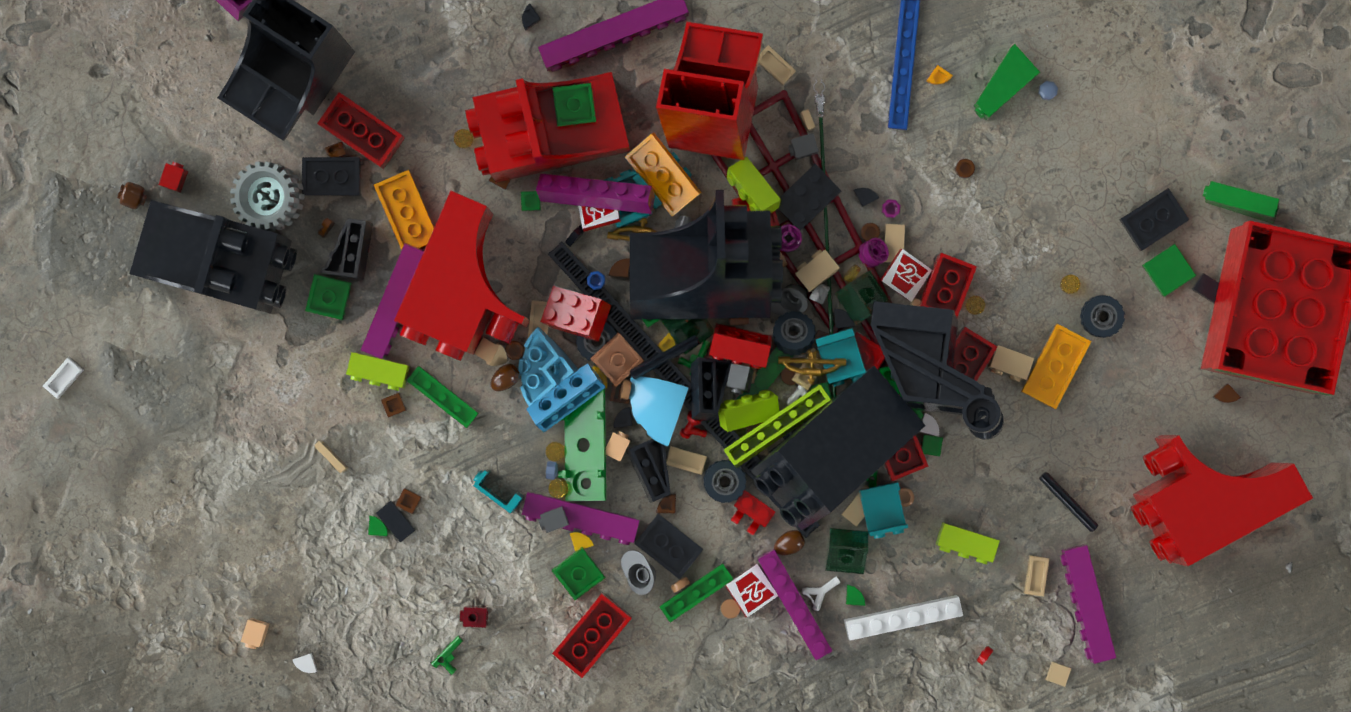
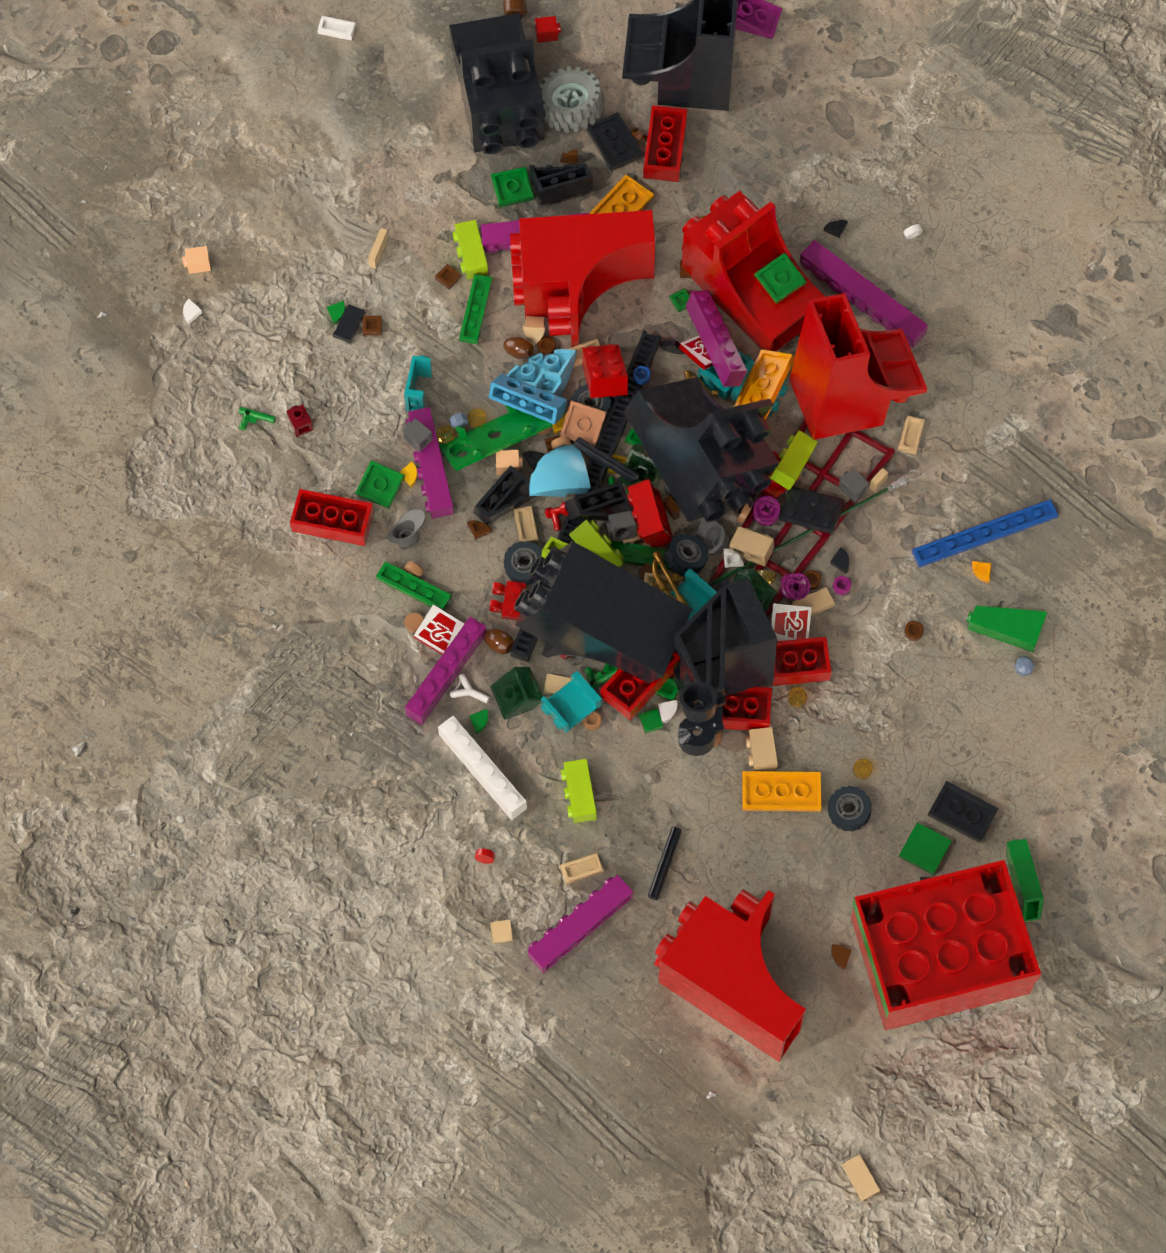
camera: 65 degrees right, 20 degrees down
(668, 546) = (442, 545): black plate -> none

